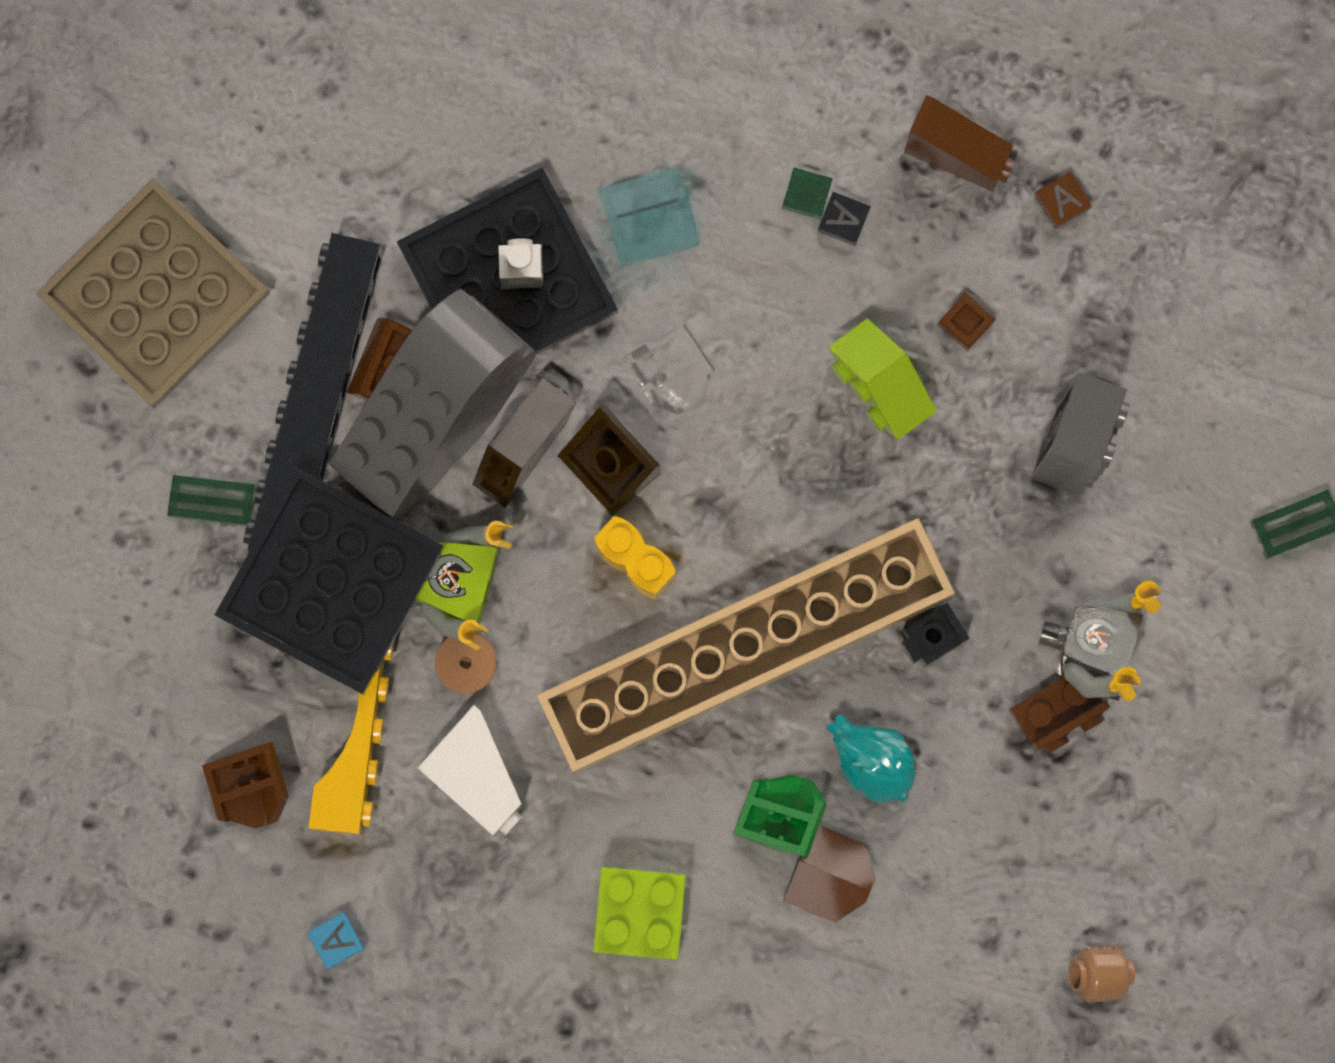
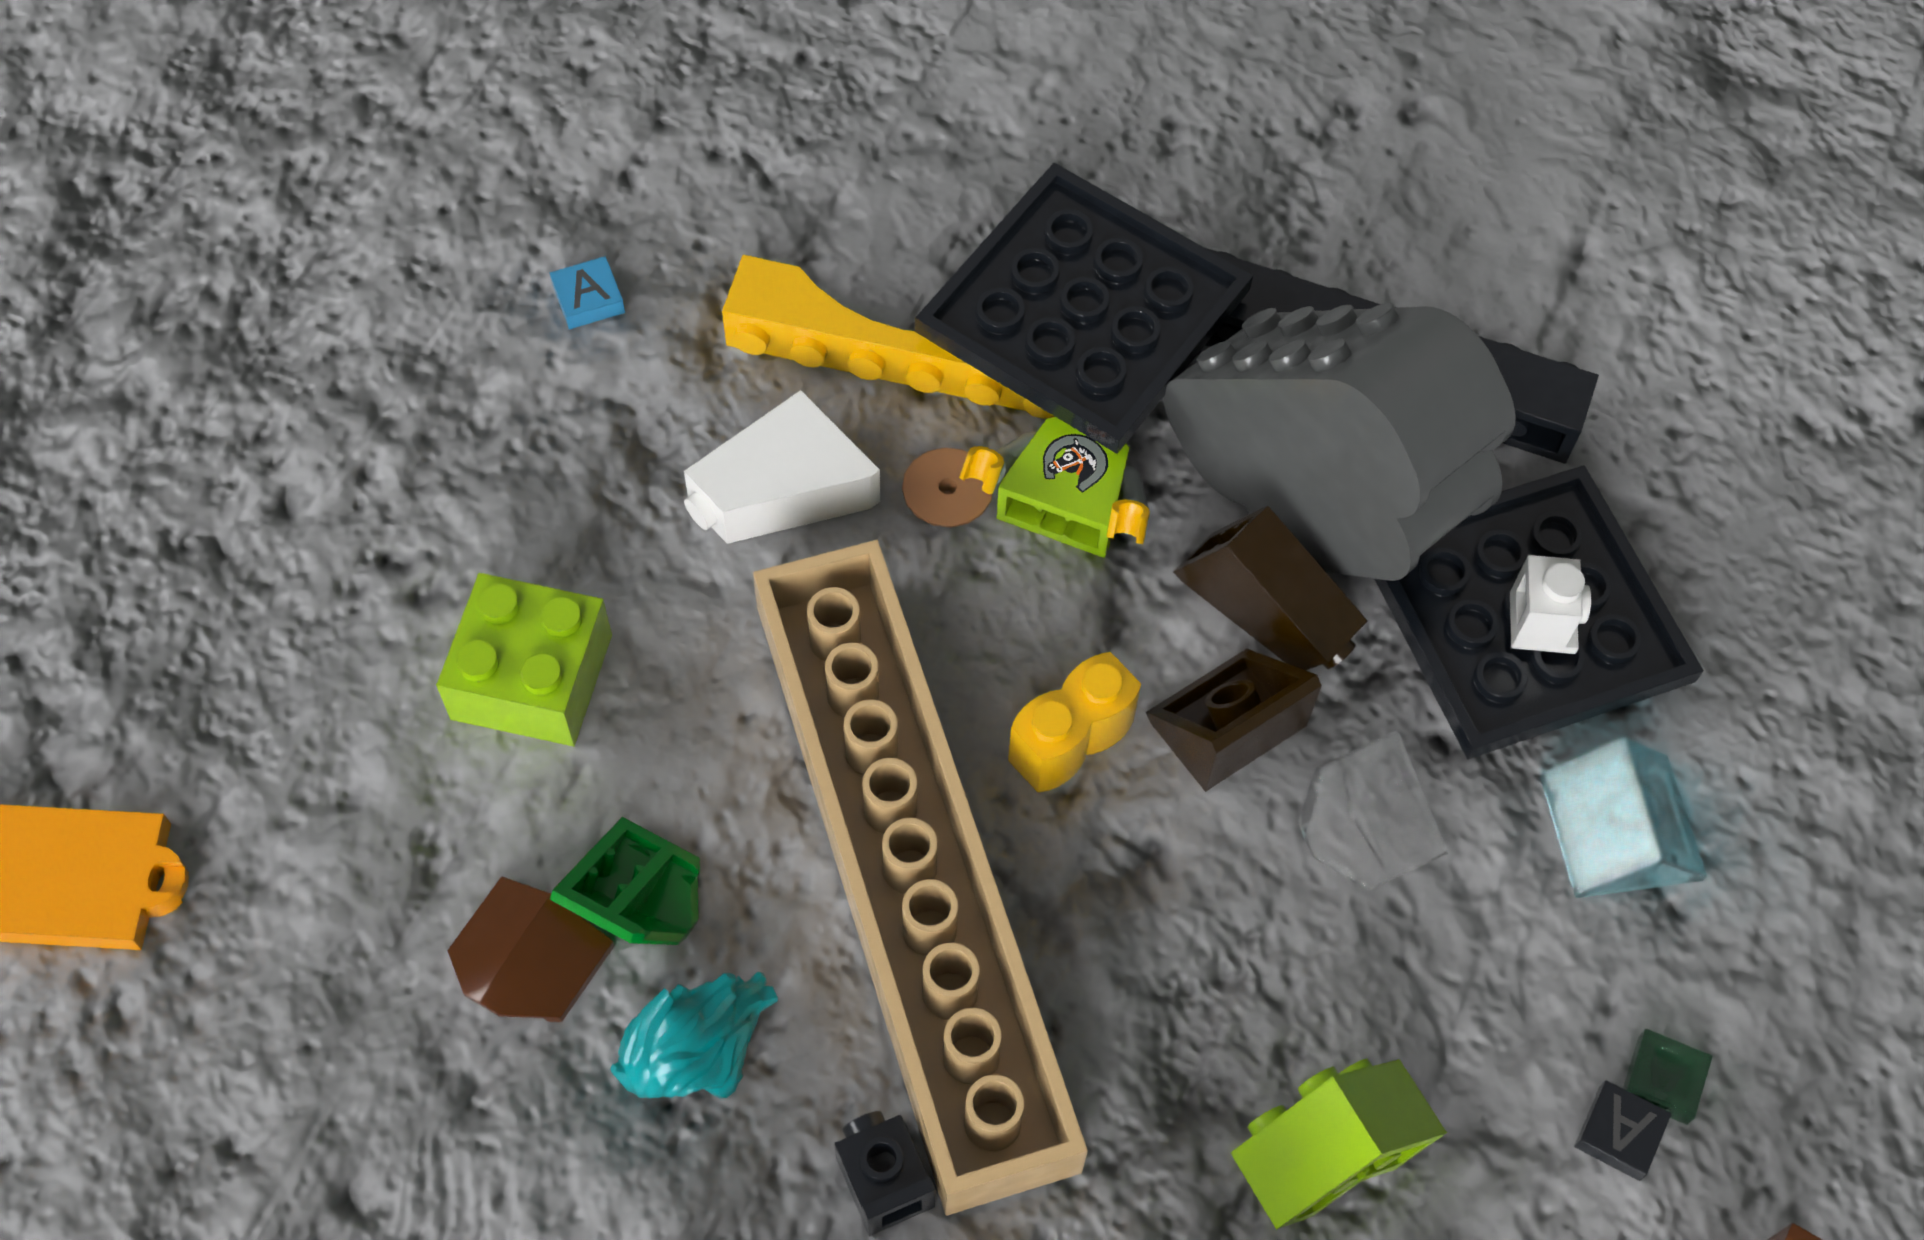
camera: 95 degrees right, 20 degrees down
(153, 293) = (1511, 182): dark tan plate -> none
(246, 505) = (1227, 181): clear green tile -> none
(248, 786) = (818, 211): reddish brown slope -> none

